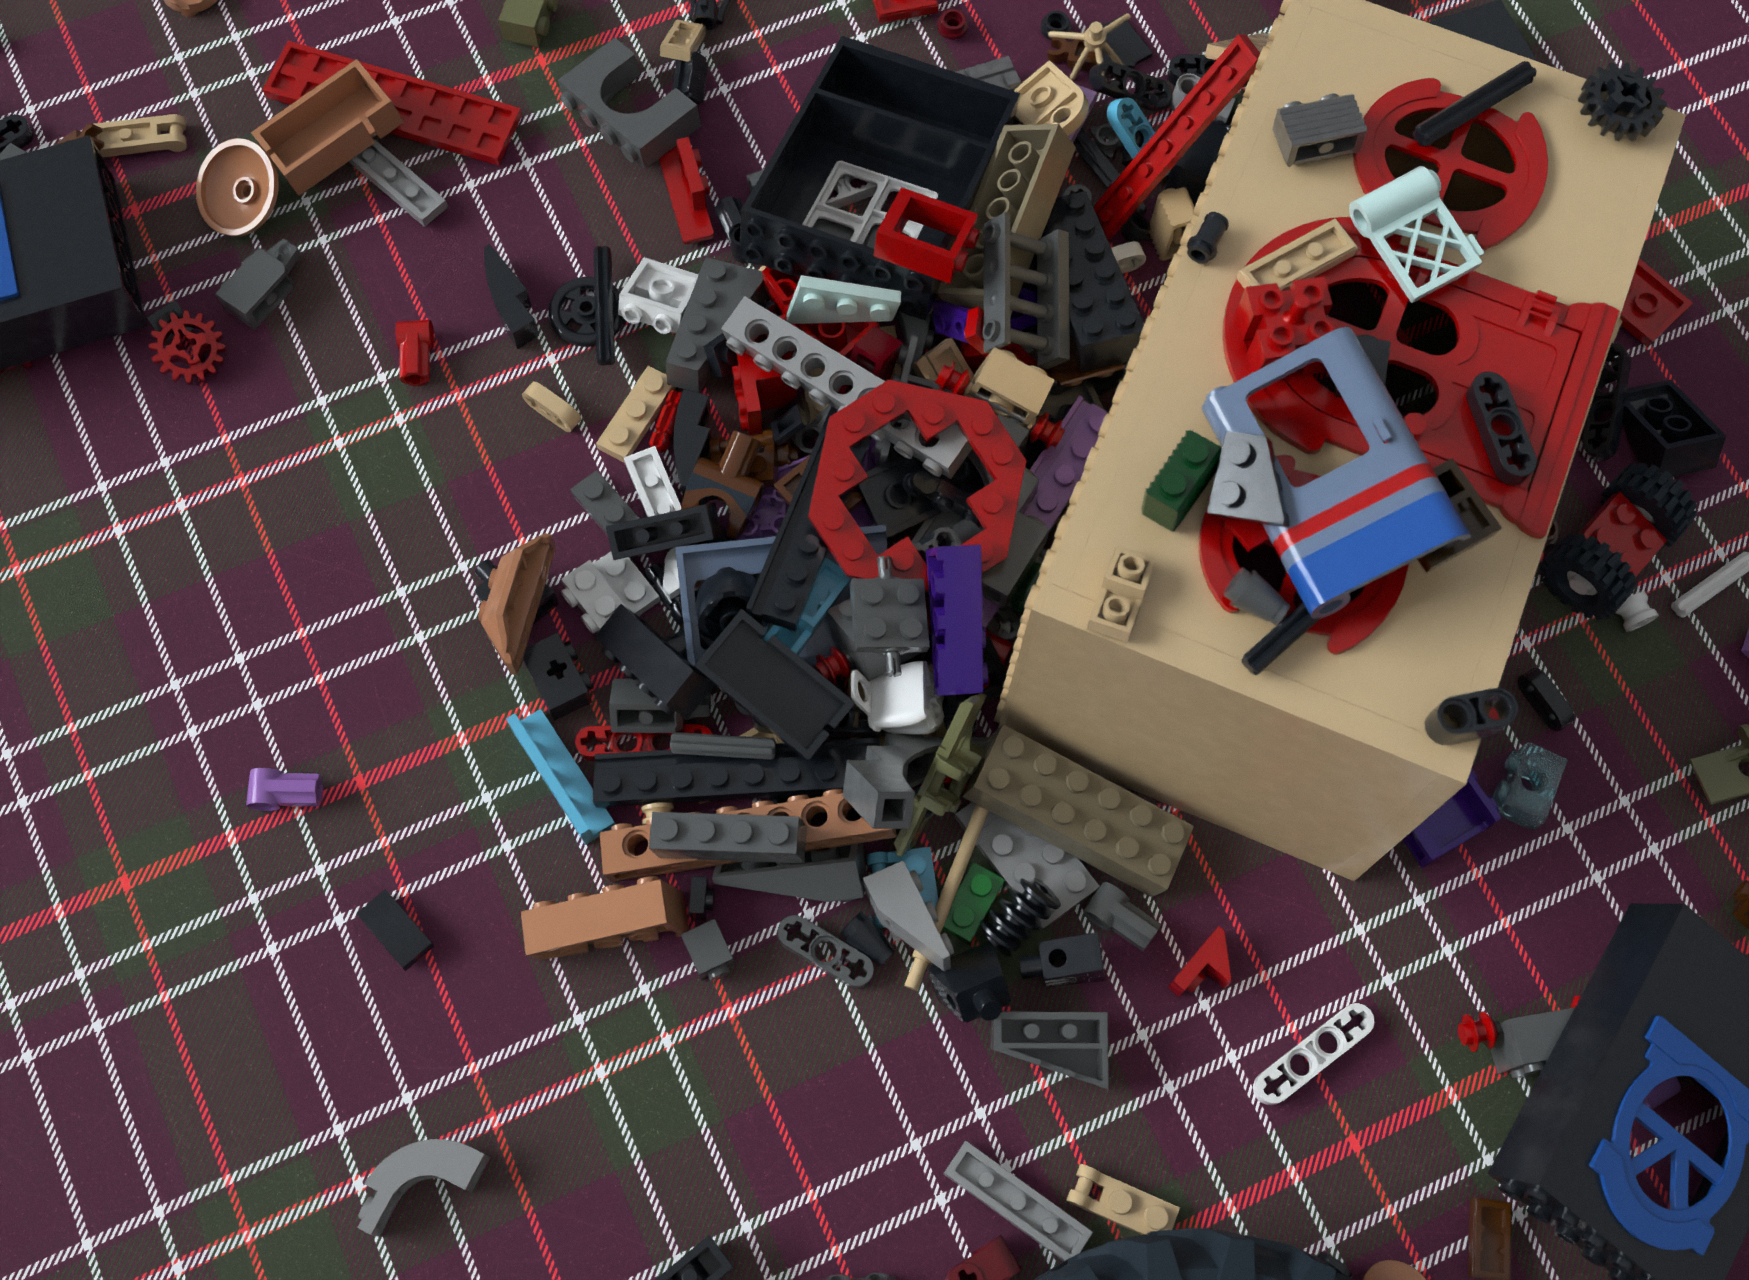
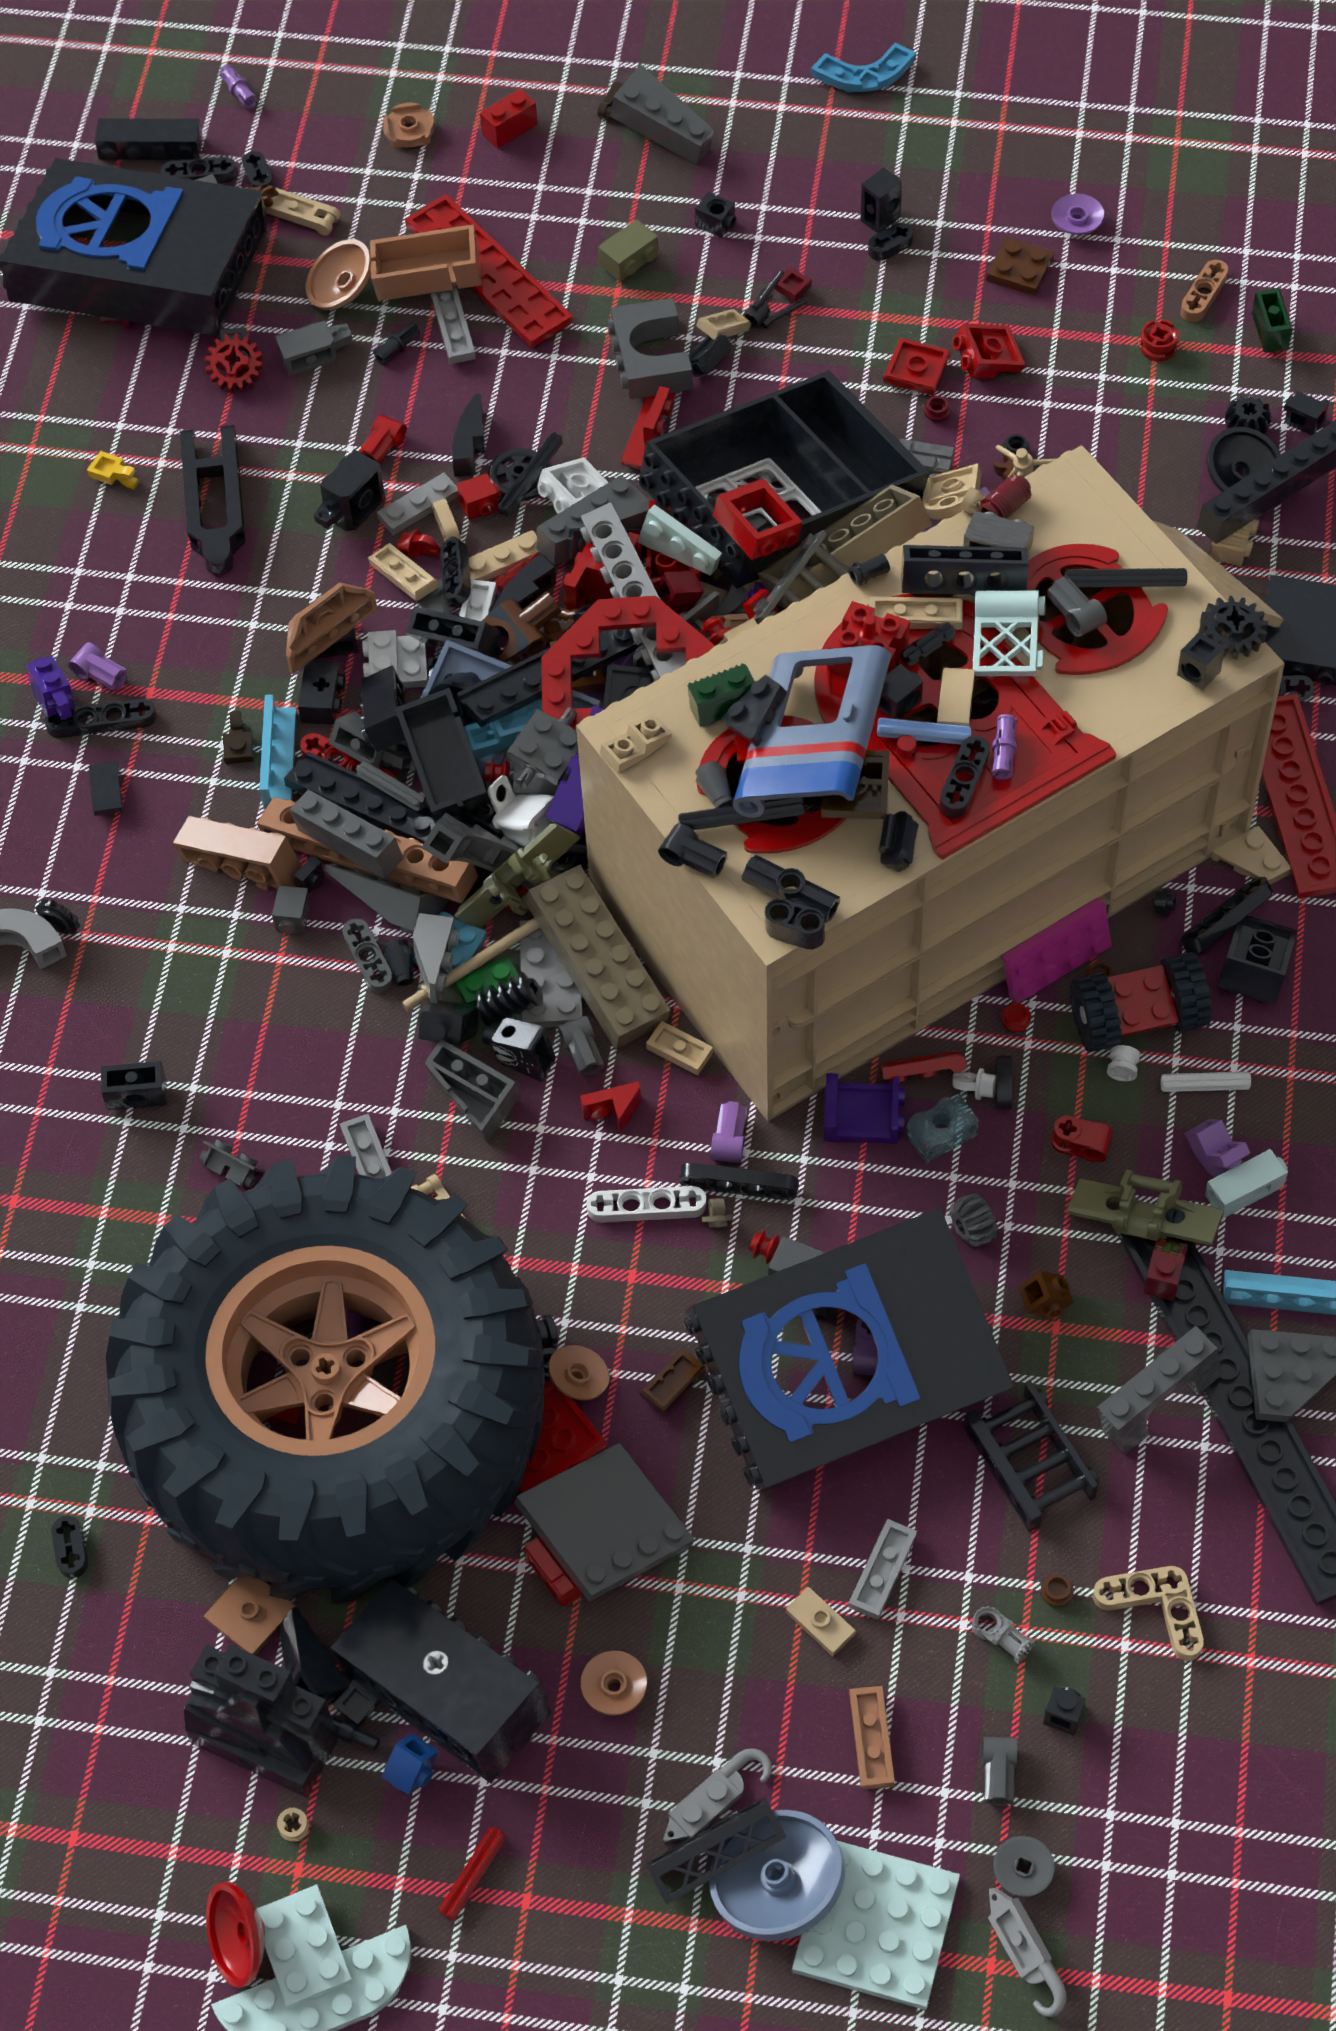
camera: 40 degrees right, 10 degrees down
(60, 113) = (253, 174): none -> black beam
(129, 544) = (109, 468): none -> yellow plate
(251, 850) = (50, 687): none -> dark purple hinge
(317, 568) = (219, 543): none -> black piece
(330, 851) = (101, 723): none -> black beam
(351, 233) = (396, 343): none -> black axle
(429, 429) = (350, 492): none -> black hinge
(455, 1124) = (58, 916): none -> black gear
(503, 401) = (417, 504): none -> light grey plate
(506, 788) = (237, 744): none -> dark brown plate
(535, 448) = (416, 544): none -> red piece
(547, 488) = (403, 572): none -> tan tile
(565, 359) = (478, 496): none -> red brick
(616, 458) = (461, 577): none -> black beam
(1219, 857) = (679, 1048): none -> tan plate
(1248, 99) = (971, 499): none -> tan hinge
(1280, 695) = (686, 848): none -> black piece
(1285, 77) = (1007, 497): none -> dark red head
(1322, 184) = (952, 560): none -> black brick
(1342, 287) = (928, 644): none -> black axle
(1342, 931) = (729, 1140): none -> medium lavender piece
(1386, 970) = (739, 1181): none -> black beam
(1393, 1022) = (717, 1211): none -> dark tan plate
(1409, 678) = (774, 879): none -> black piece
(1423, 338) = (956, 696): none -> tan slope
(1434, 391) = (923, 730): none -> light blue axle
(1473, 168) = (1079, 612): none -> dark grey piece
(1499, 557) = (898, 841): none -> black piece
(1528, 390) = (1004, 746): none -> medium lavender pin
(1528, 717) = (981, 1083): none -> white piece
(1633, 157) = (1200, 661): none -> black brick
(1639, 869) = (973, 1220): none -> dark grey gear
(1658, 715) = (1085, 1138): none -> red piece

